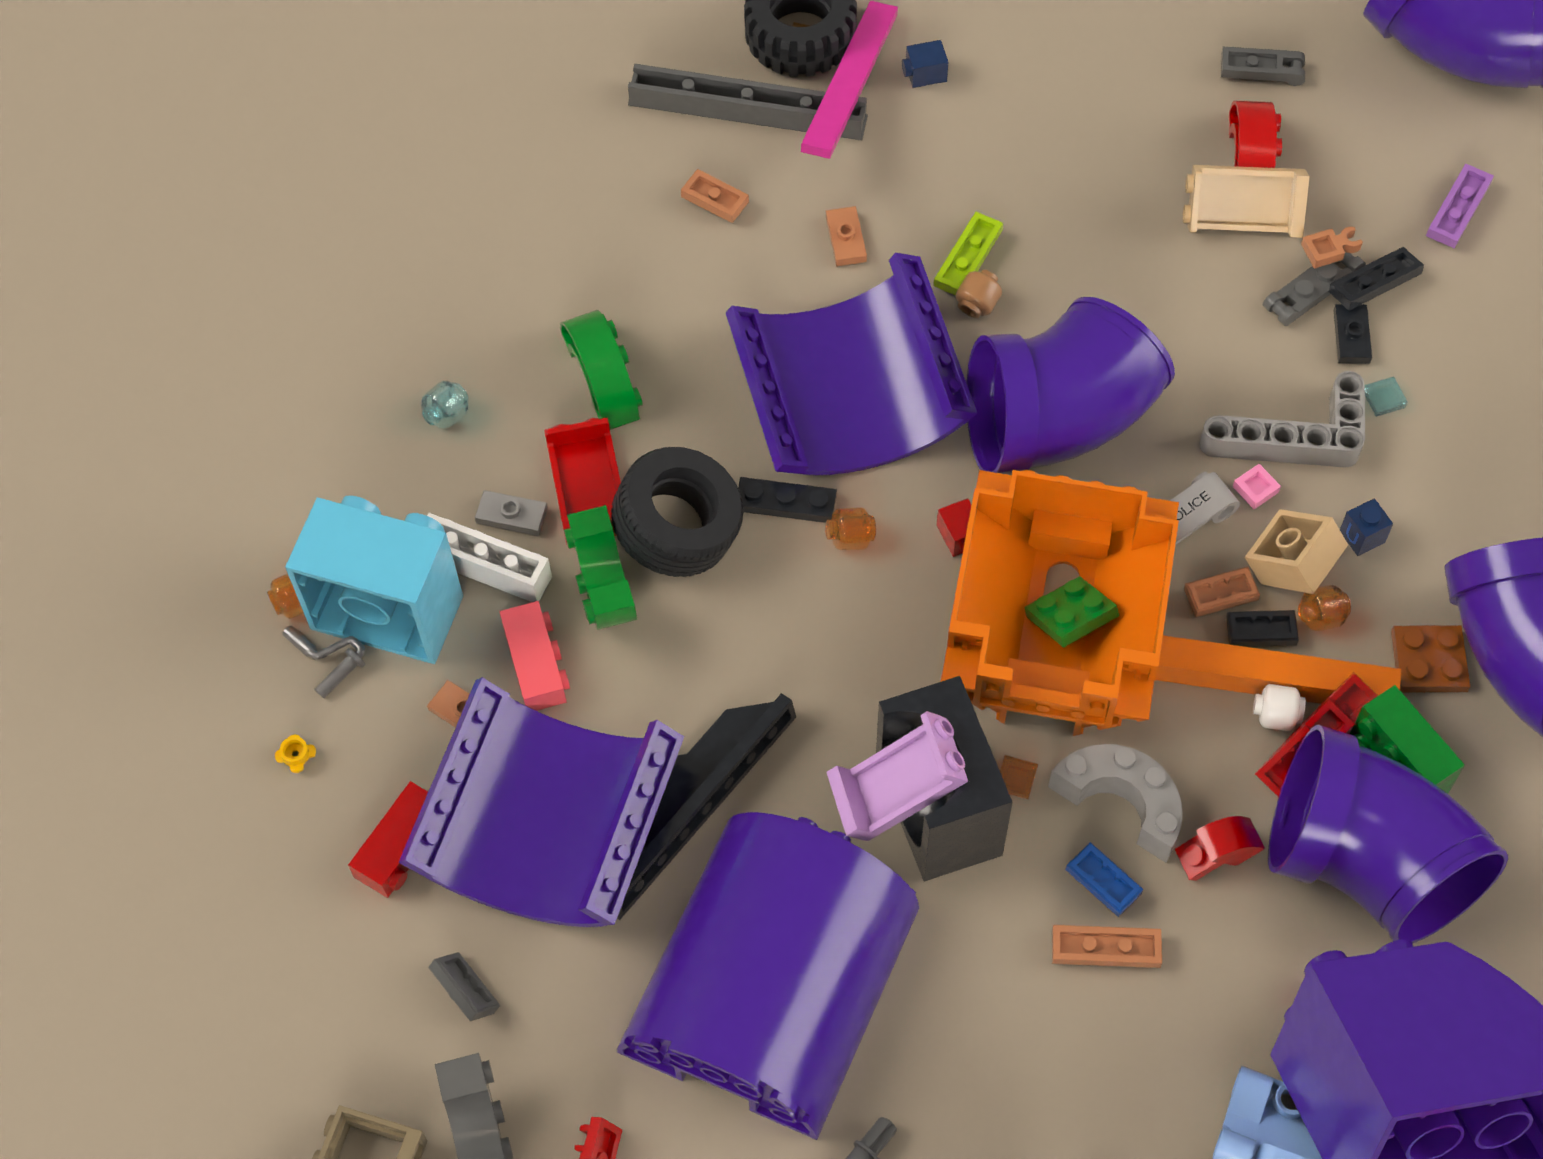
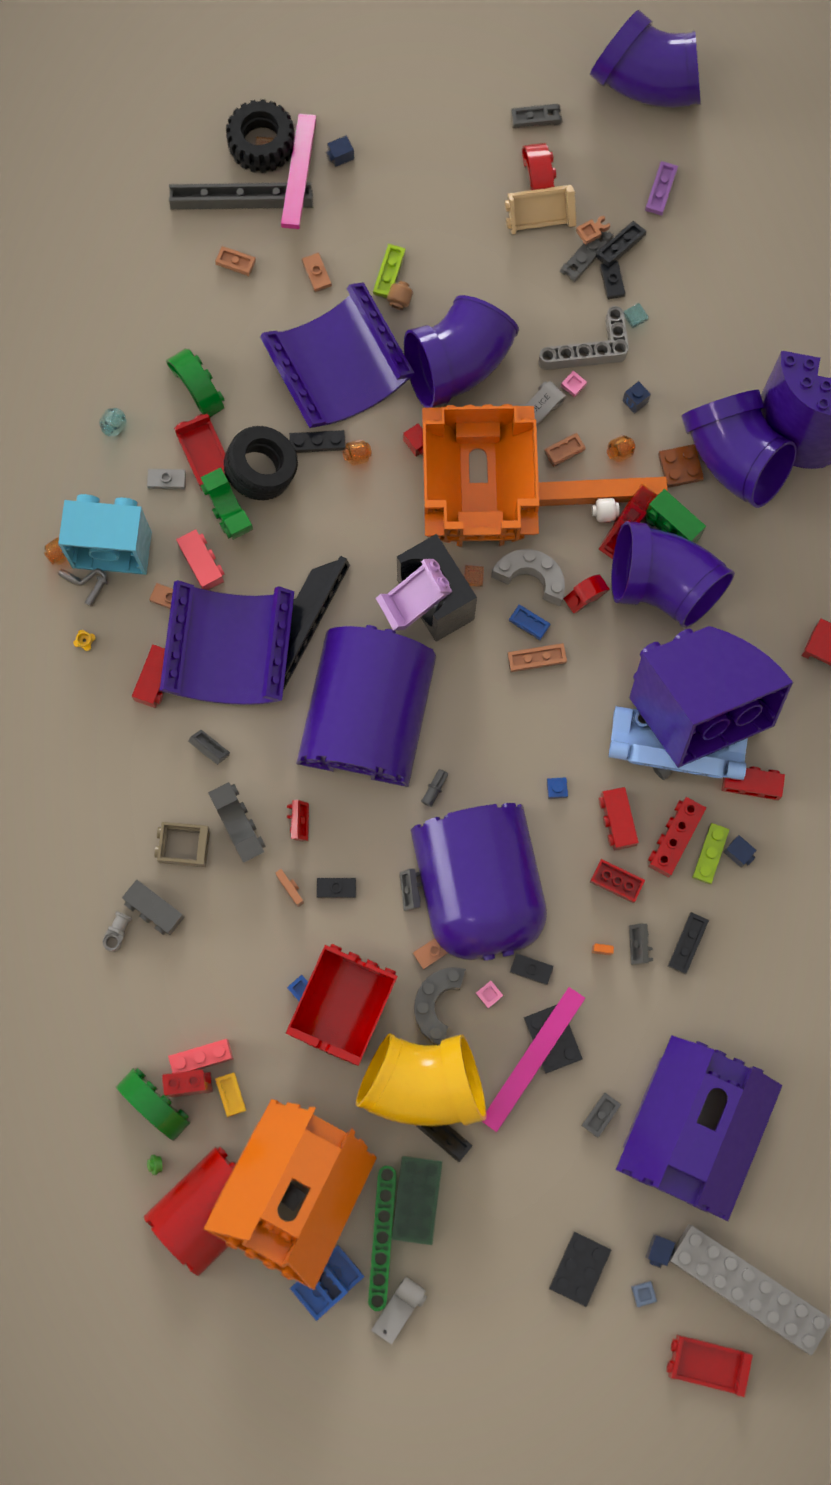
camera: 15 degrees left, 15 degrees up
(496, 561) = (165, 510): white brick -> none
(1071, 611) = (486, 478): green plate -> none
(1262, 628) = (589, 466): black plate -> none
(1296, 551) = (601, 419): tan brick -> none

